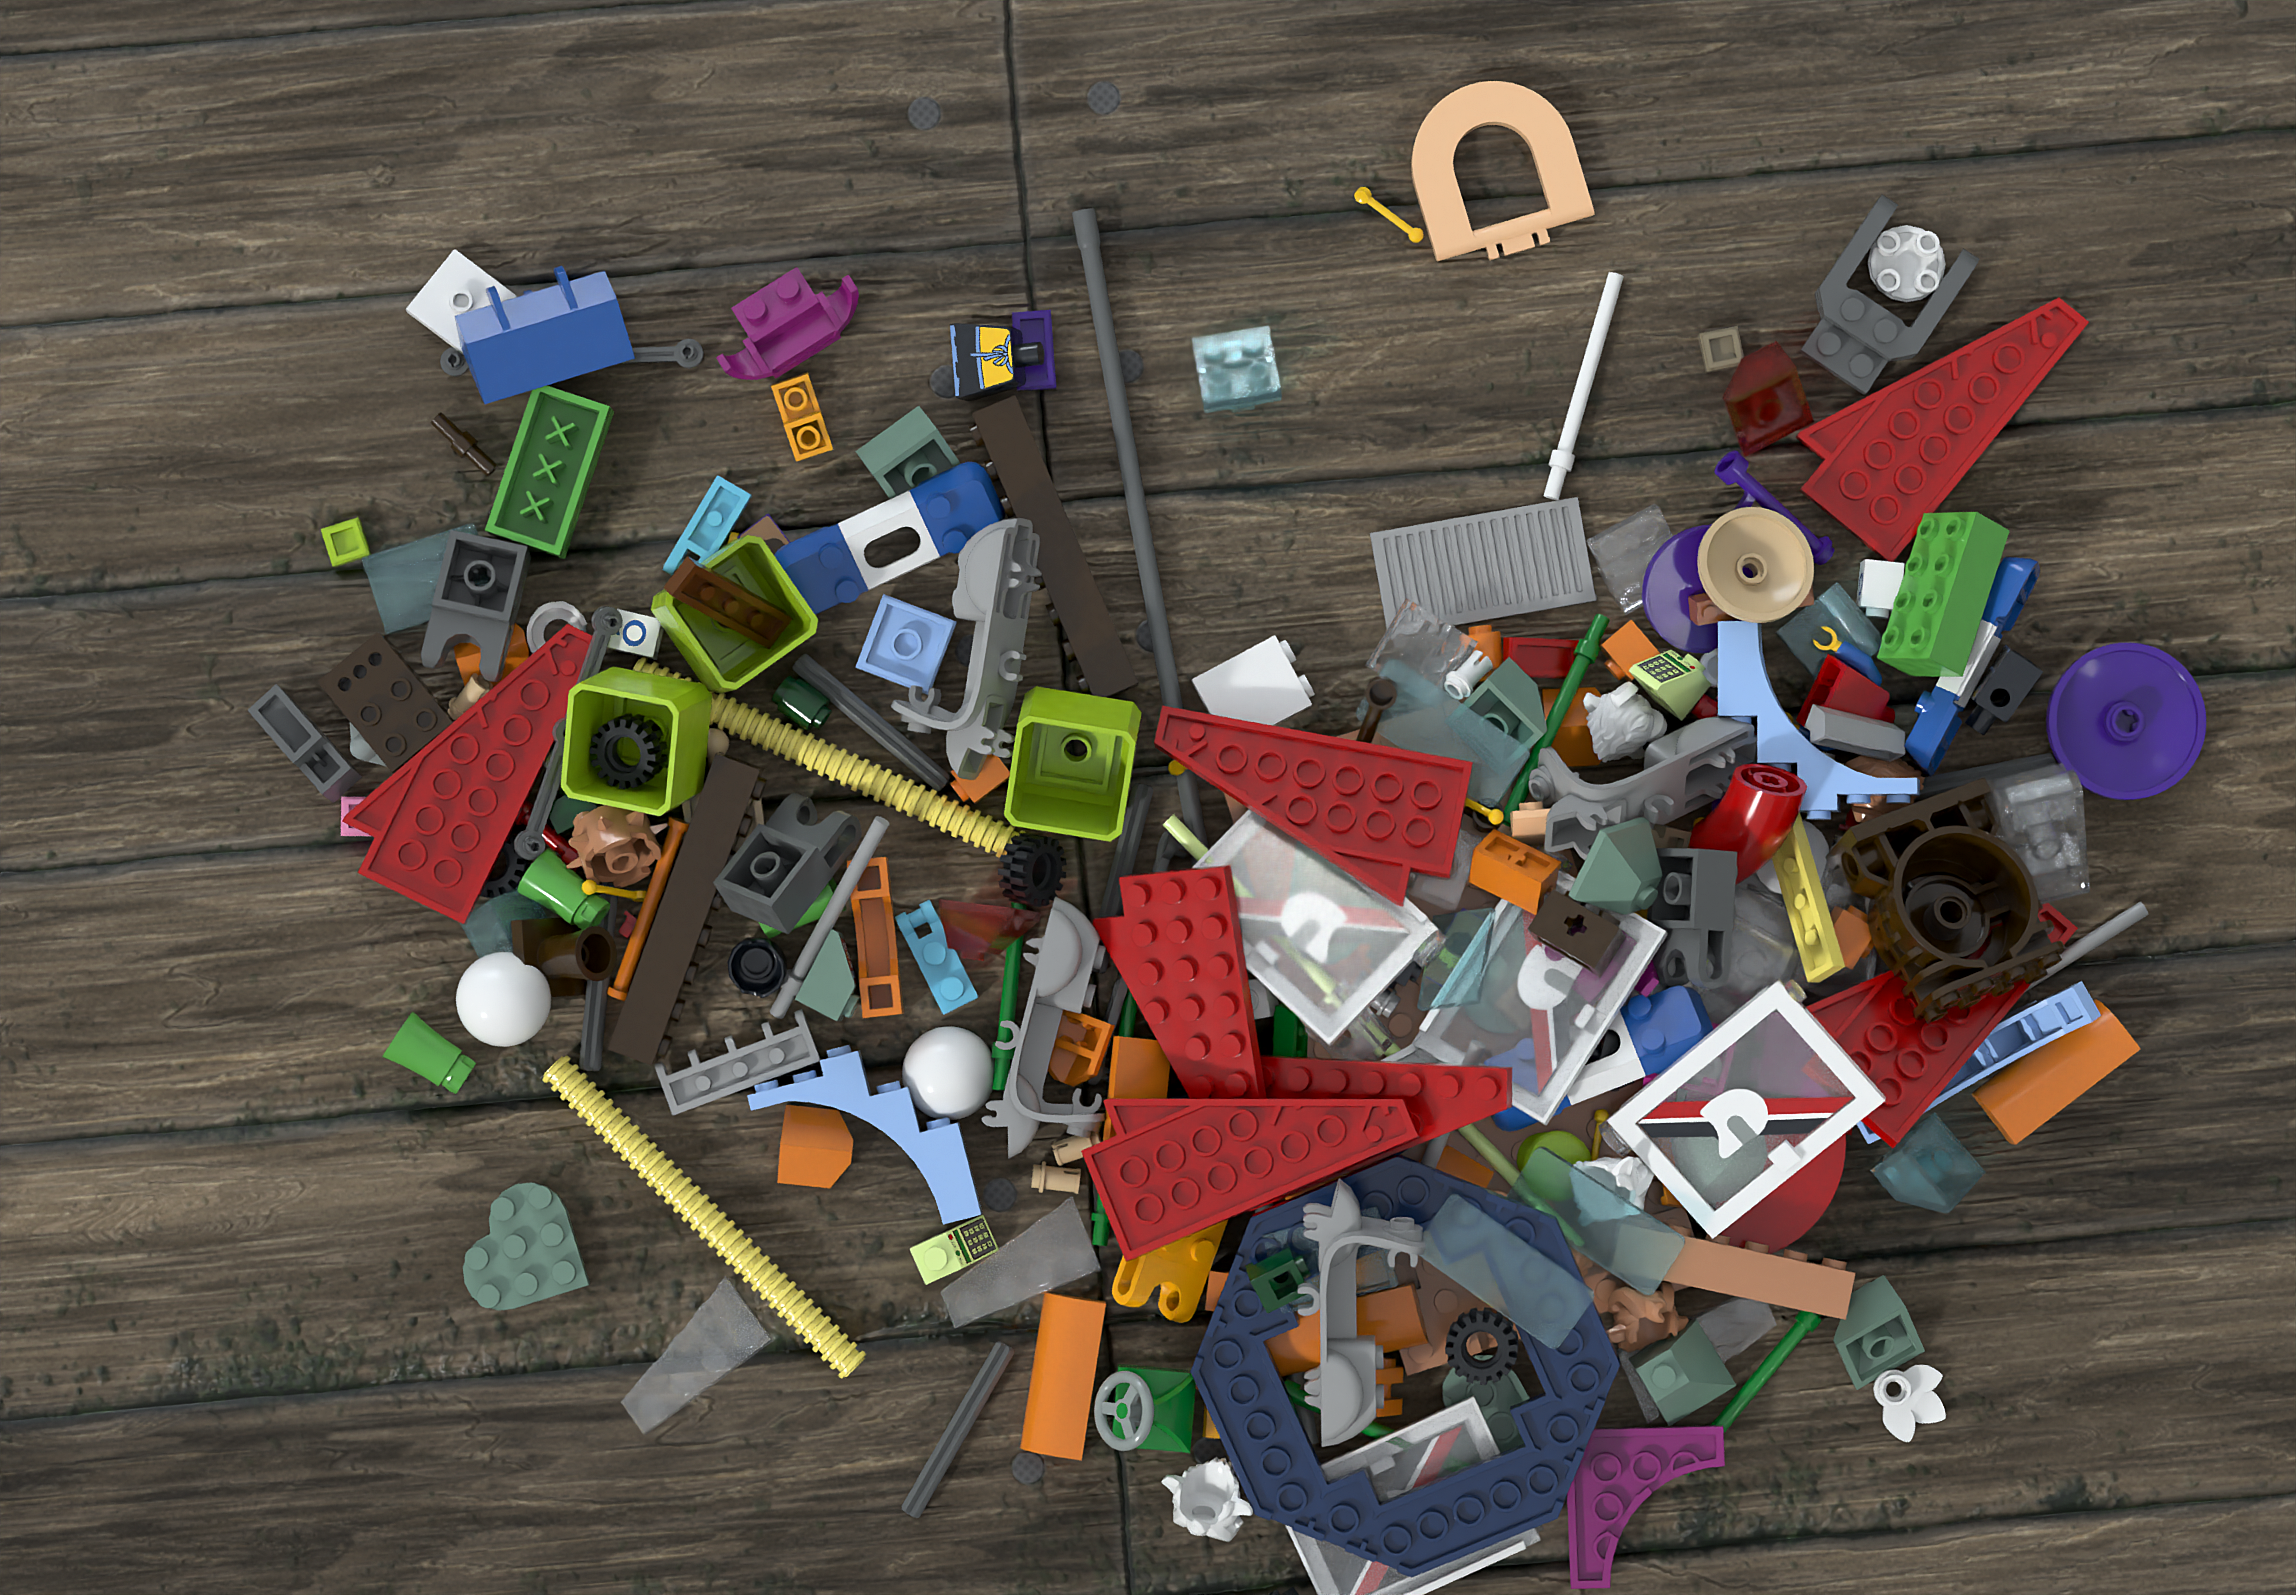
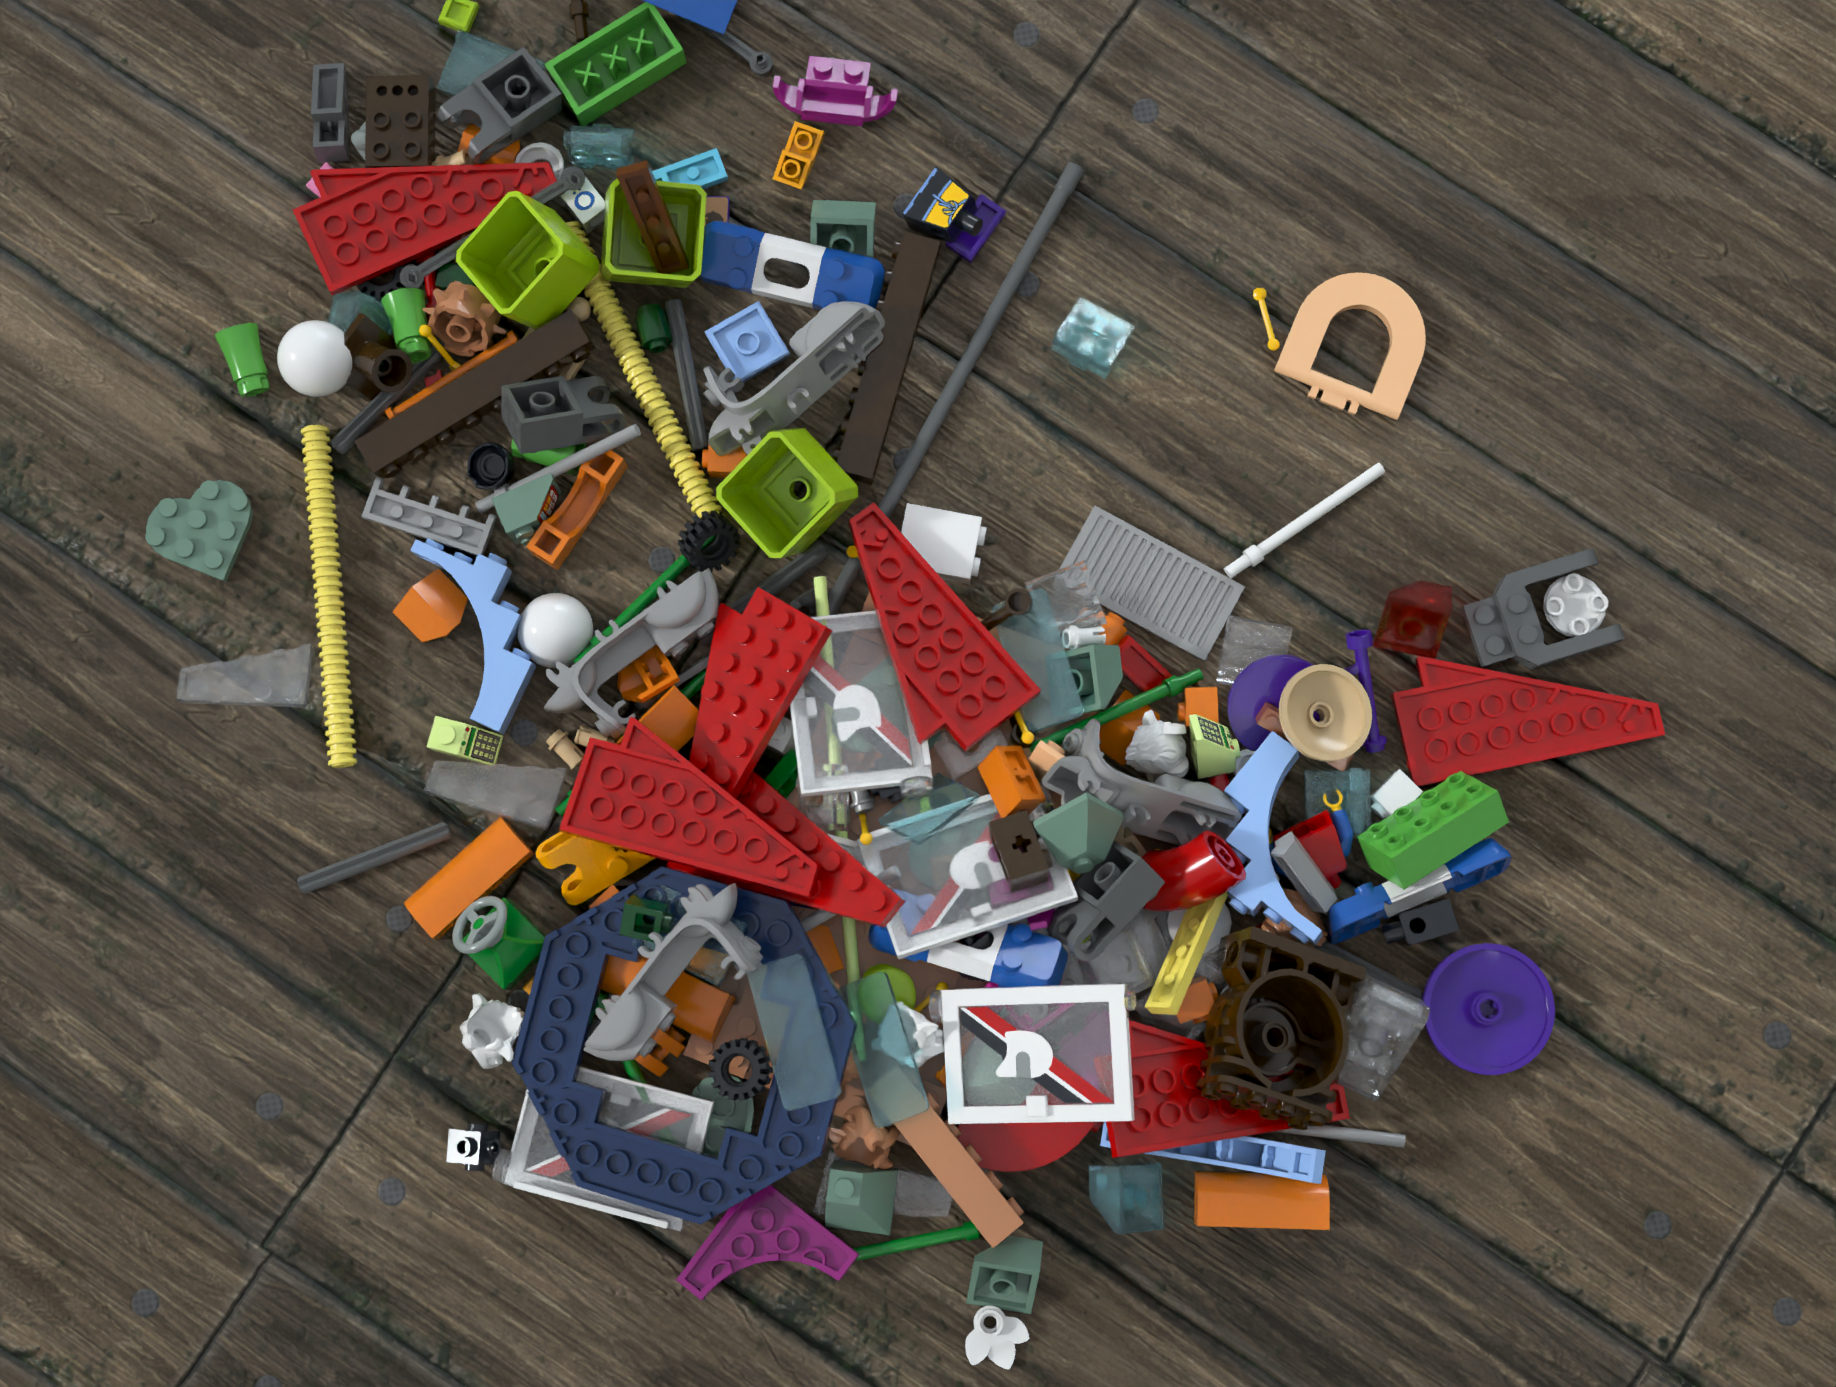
camera: 40 degrees right, 5 degrees down
(603, 565) = (599, 146): none -> clear light blue plate
(608, 757) = (506, 260): black tyre -> none
(938, 963) = (606, 553): medium azure plate -> none
(983, 927) = (648, 552): clear red slope -> none
(1422, 1035) = (865, 838): none -> yellow hinge
(1721, 349) = (1411, 566): dark tan tile -> none

